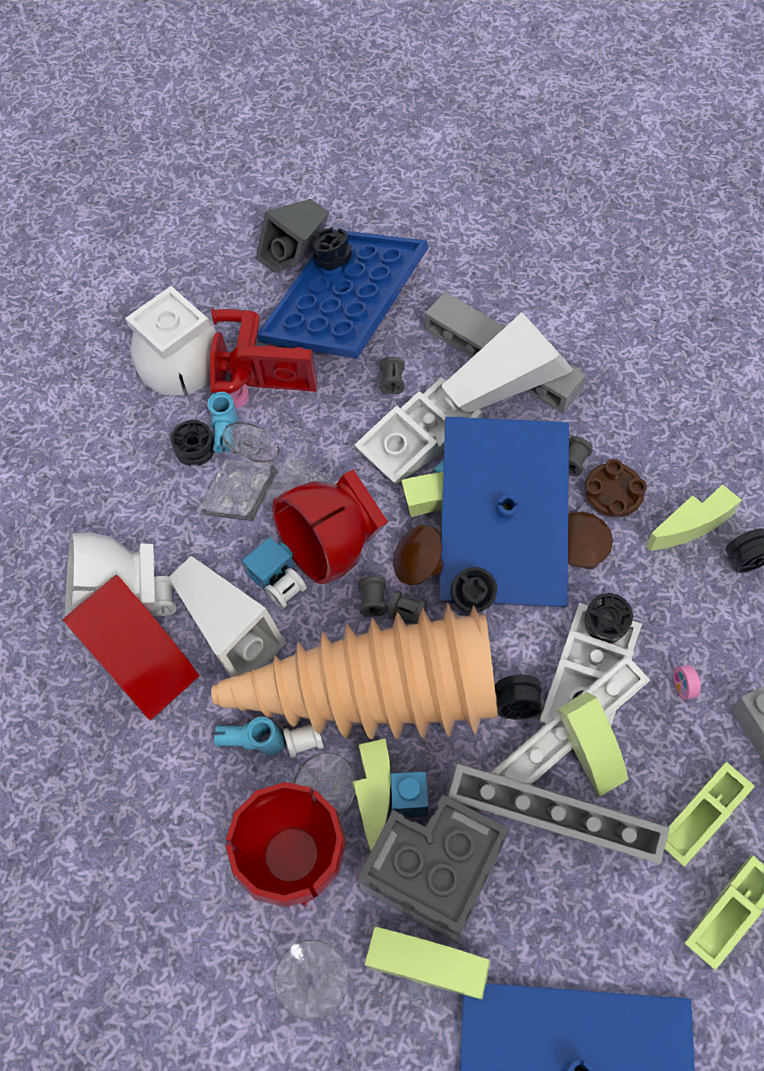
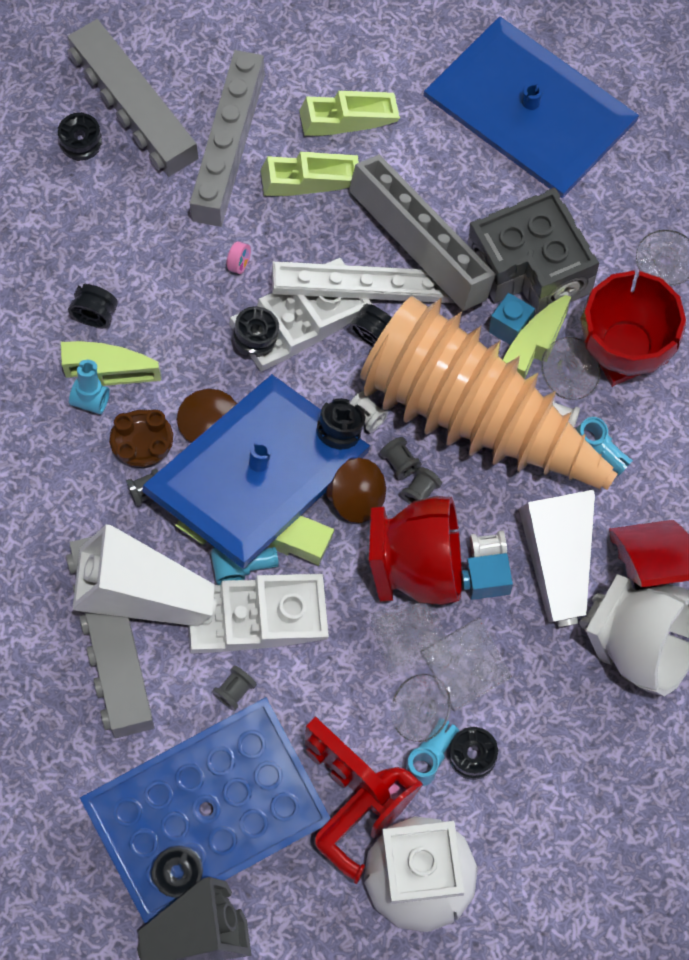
camera: 145 degrees left, 5 degrees up
(427, 963) = (589, 217): yellowish green slope -> none
(594, 742) = (353, 253): yellowish green slope -> none
(684, 485) = (87, 389): none -> medium azure pin

